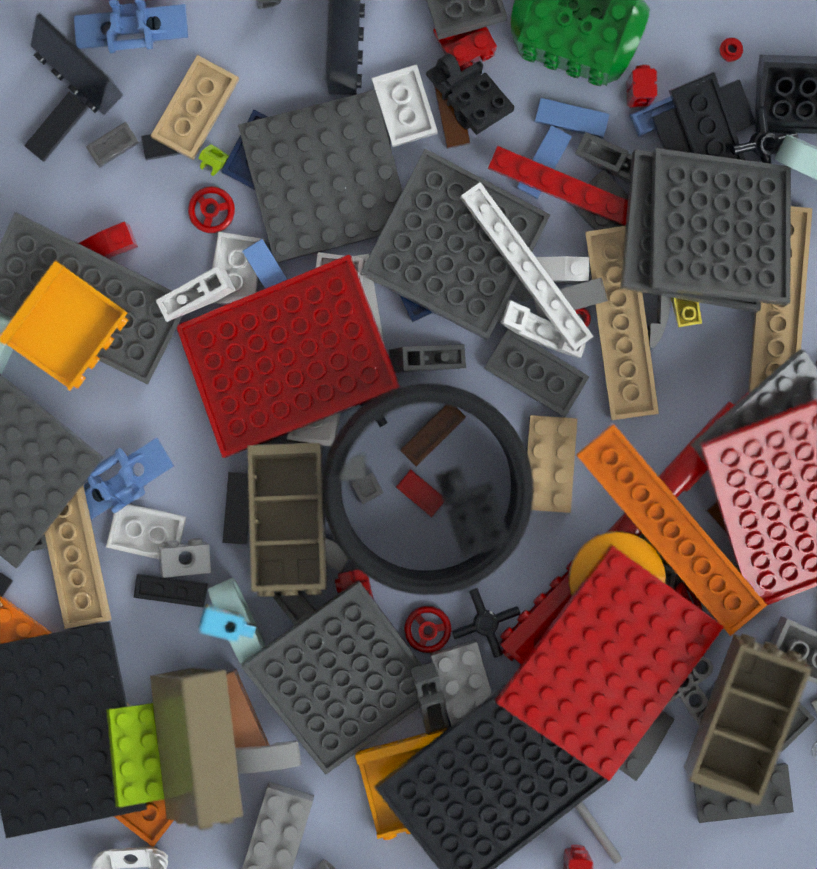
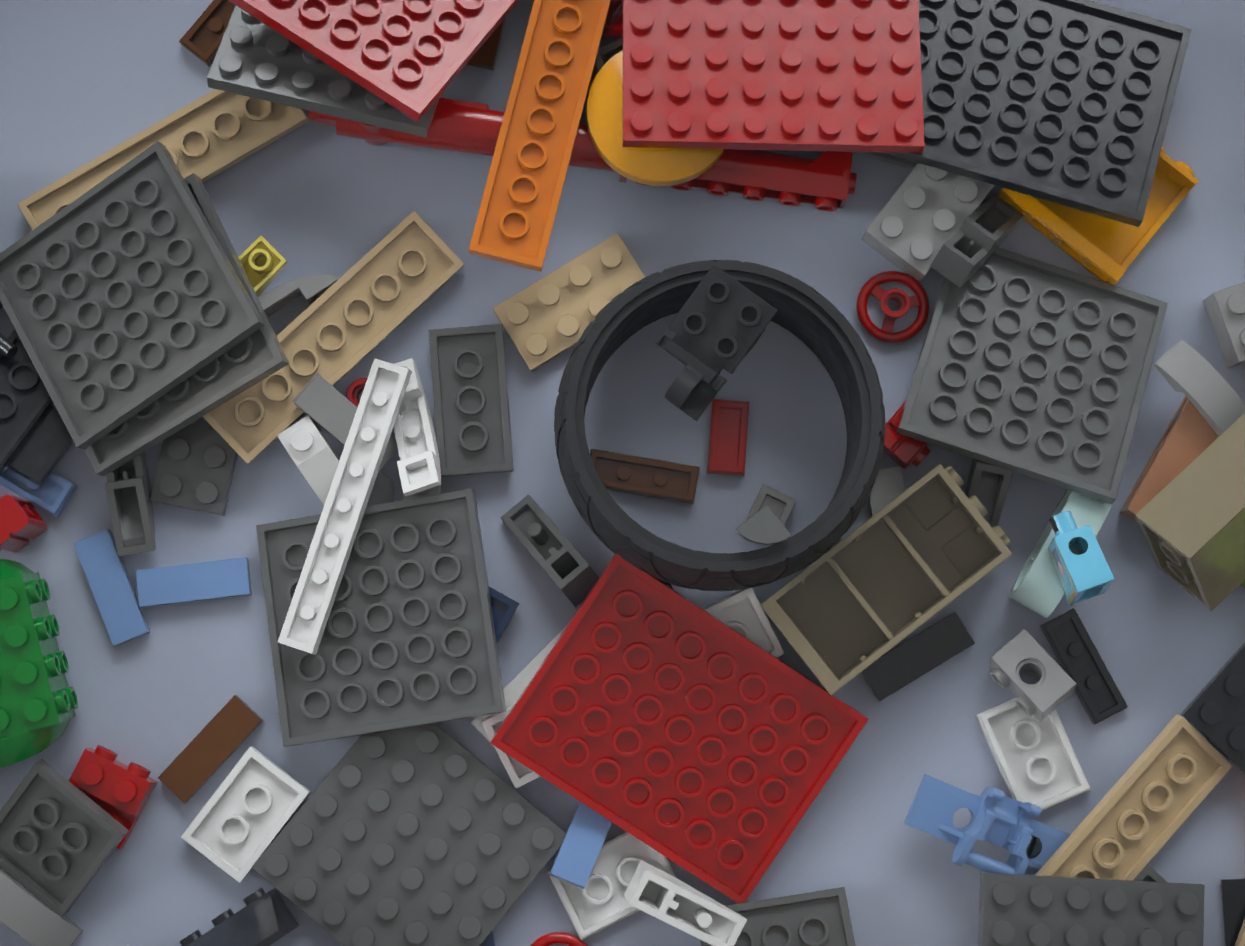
camera: 125 degrees left, 5 degrees down
(473, 96) = (171, 732): black plate -> none
(490, 632) = (838, 226): black bar -> none
(559, 185) = (210, 539): red plate -> none

